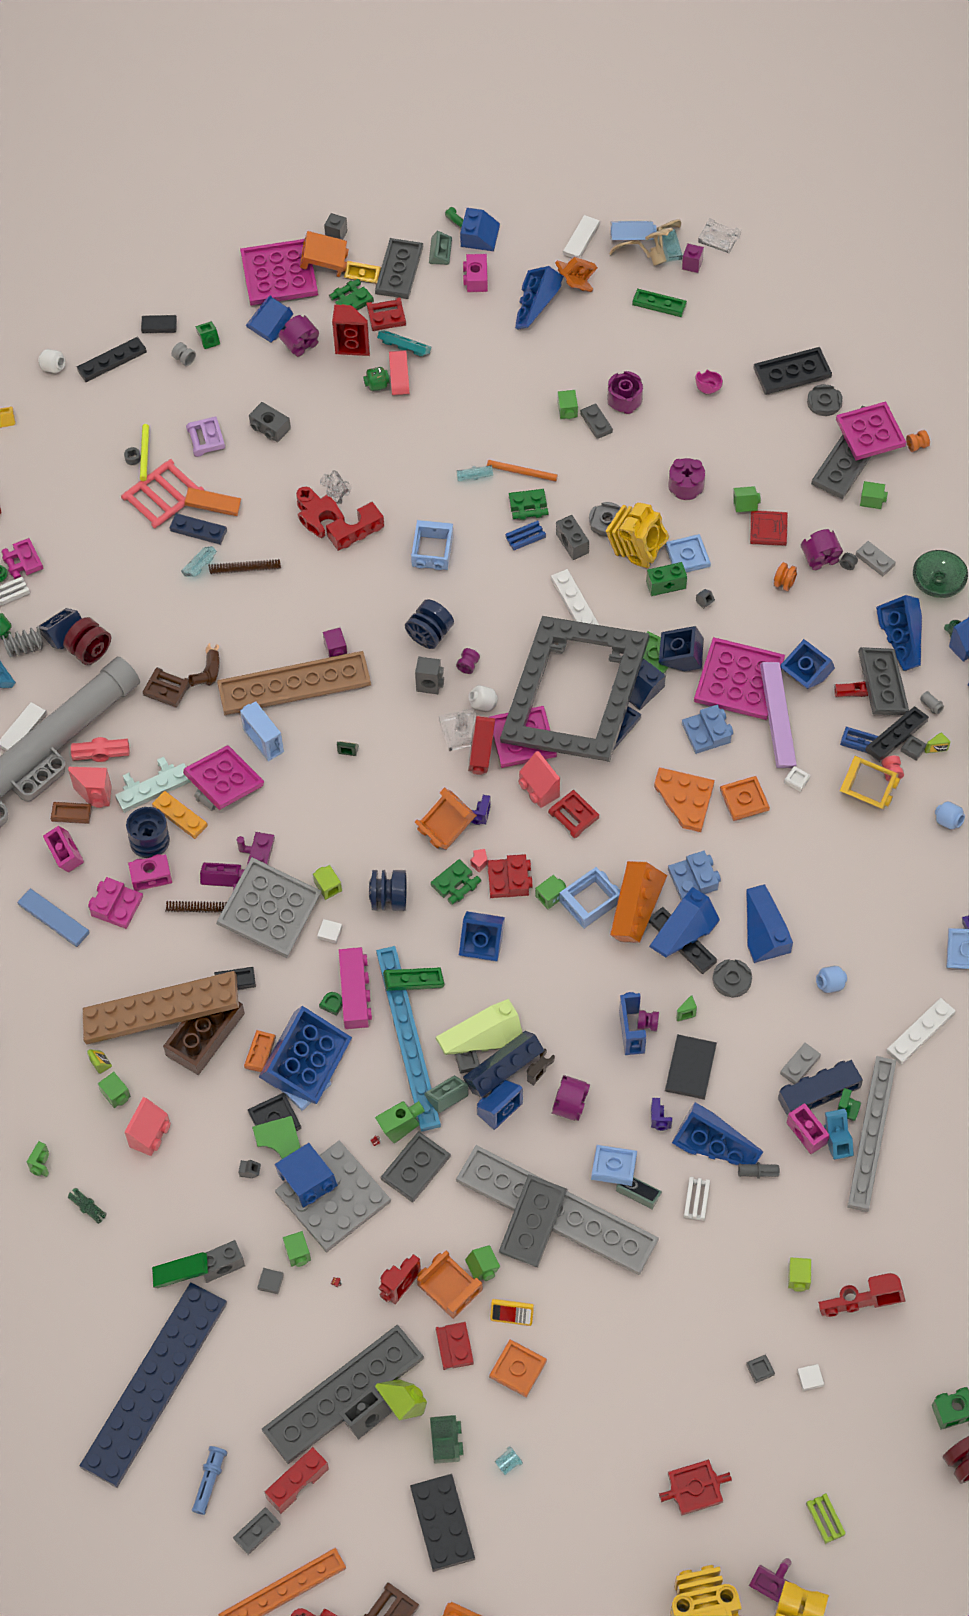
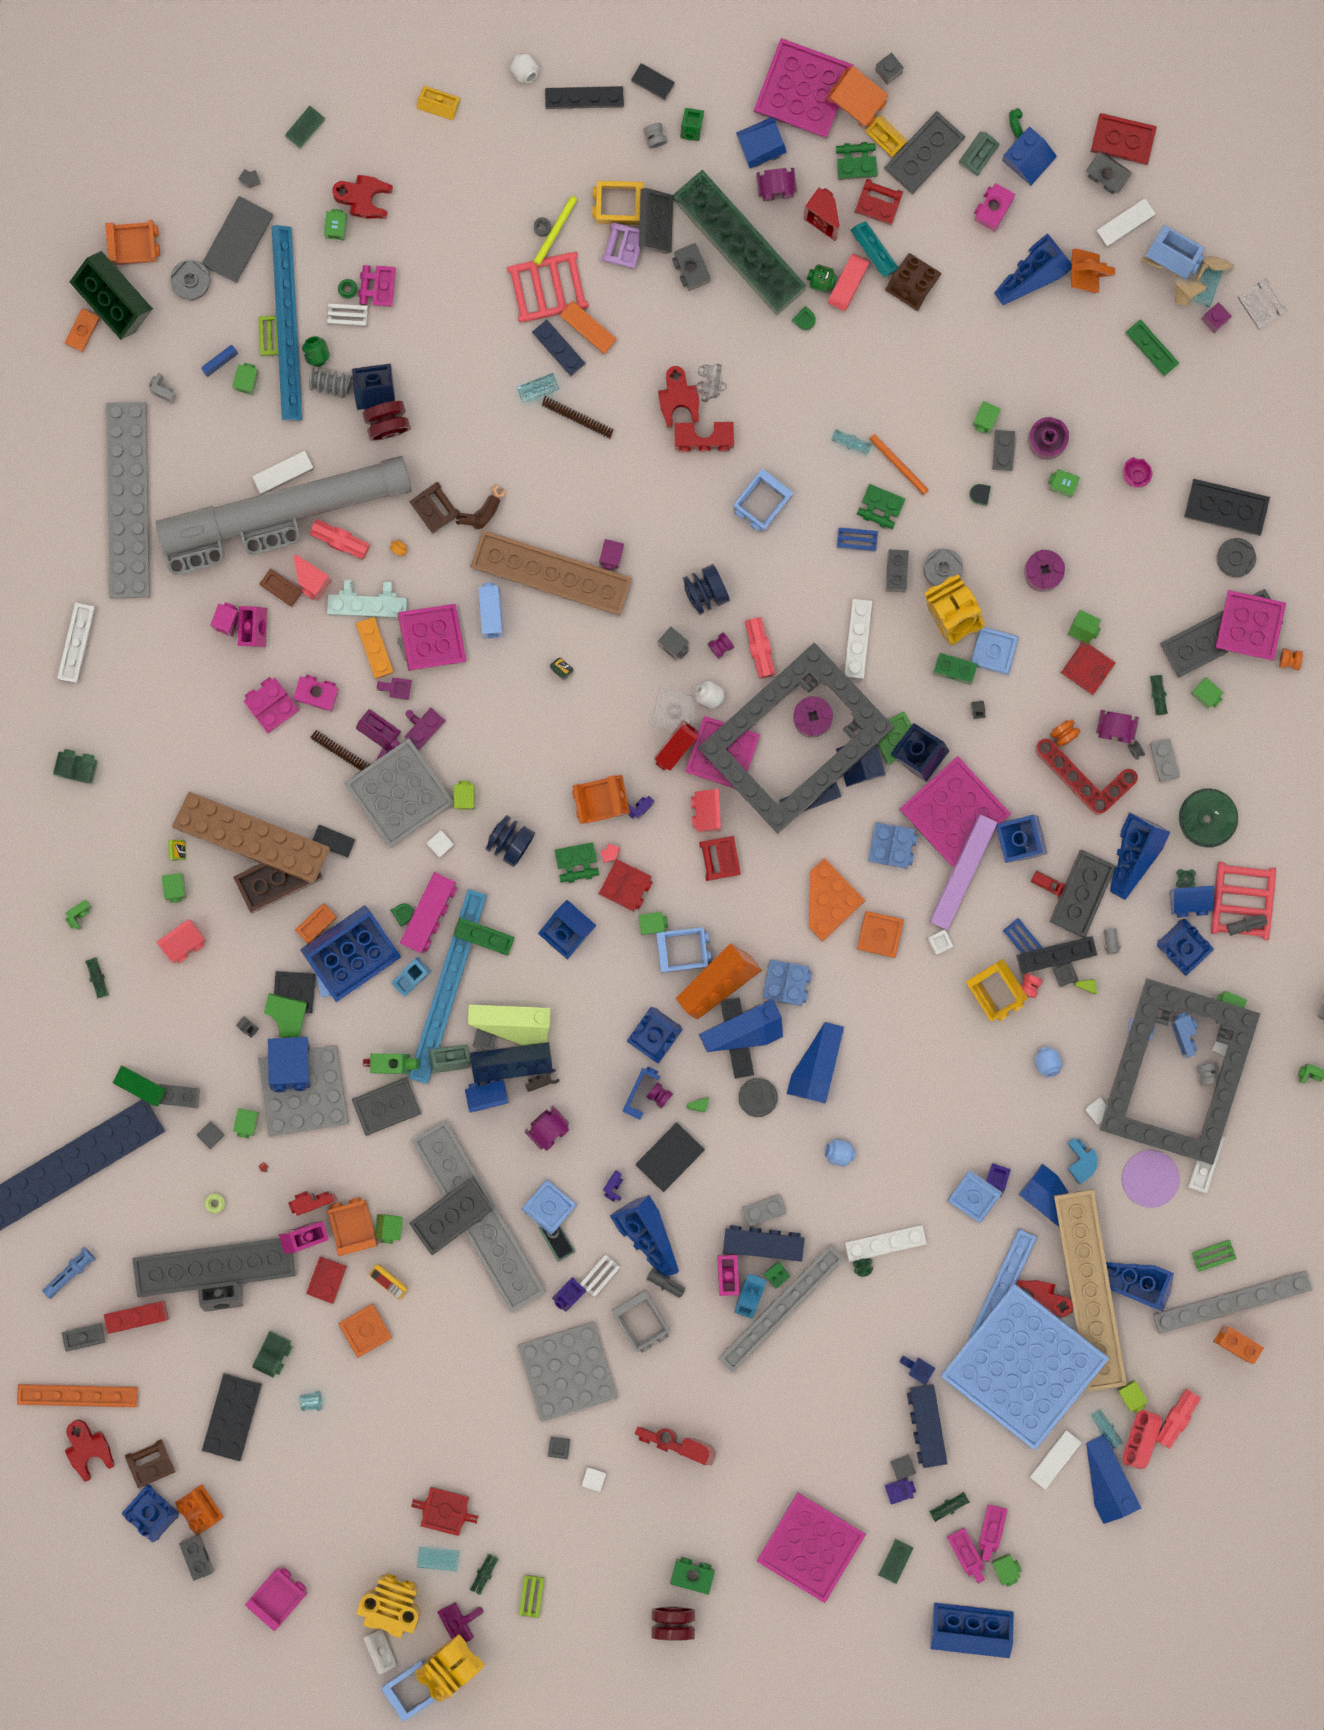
camera: 30 degrees right, 25 degrees up
(37, 854) = (225, 619): none -> dark pink brick
(53, 917) = (210, 686): medium blue tile -> none
(147, 832) = (326, 647): dark blue wheel -> none
(154, 729) = (398, 547): none -> light orange plate
(175, 398) = (620, 219): none -> yellow window
(217, 831) = (398, 688): none -> magenta plate
(220, 404) = (656, 220): none -> dark grey plate
(296, 386) = (739, 242): none -> clear green brick
(310, 1331) = (208, 1203): none -> yellowish green plate
(373, 1040) = (411, 976): none -> dark azure brick
(381, 414) = (804, 319): none -> green tile
(403, 1398) = (254, 1302): lime slope -> none
(410, 1313) = (303, 1237): none -> dark pink brick
(448, 349) = (913, 281): none -> reddish brown bracket
(500, 646) = (760, 647): none -> coral piece
(541, 190) = (1123, 138): none -> red tile
(554, 205) = (1120, 173): none -> dark grey brick
(577, 670) = (809, 706): none -> magenta brick
(599, 457) = (980, 494): none -> black tile
(611, 976) = (655, 1034): none -> blue slope
(658, 416) = (1063, 483): none -> bright green brick
(680, 1230) = (568, 1294): none -> dark purple bracket
(717, 1537) = (438, 1559): none -> clear light blue plate
(723, 1297) = (567, 1371): none -> light grey plate
(767, 1198) = (646, 1344): none -> light grey window
(768, 1524) = (484, 1574): none -> clear green pin
(799, 1274) = (640, 1392): lime brick -> none
(822, 602) = (1082, 780): none -> red beam
(844, 524) = (1158, 695): none -> clear green pin
(916, 1059) = (863, 1267): none -> clear green plate

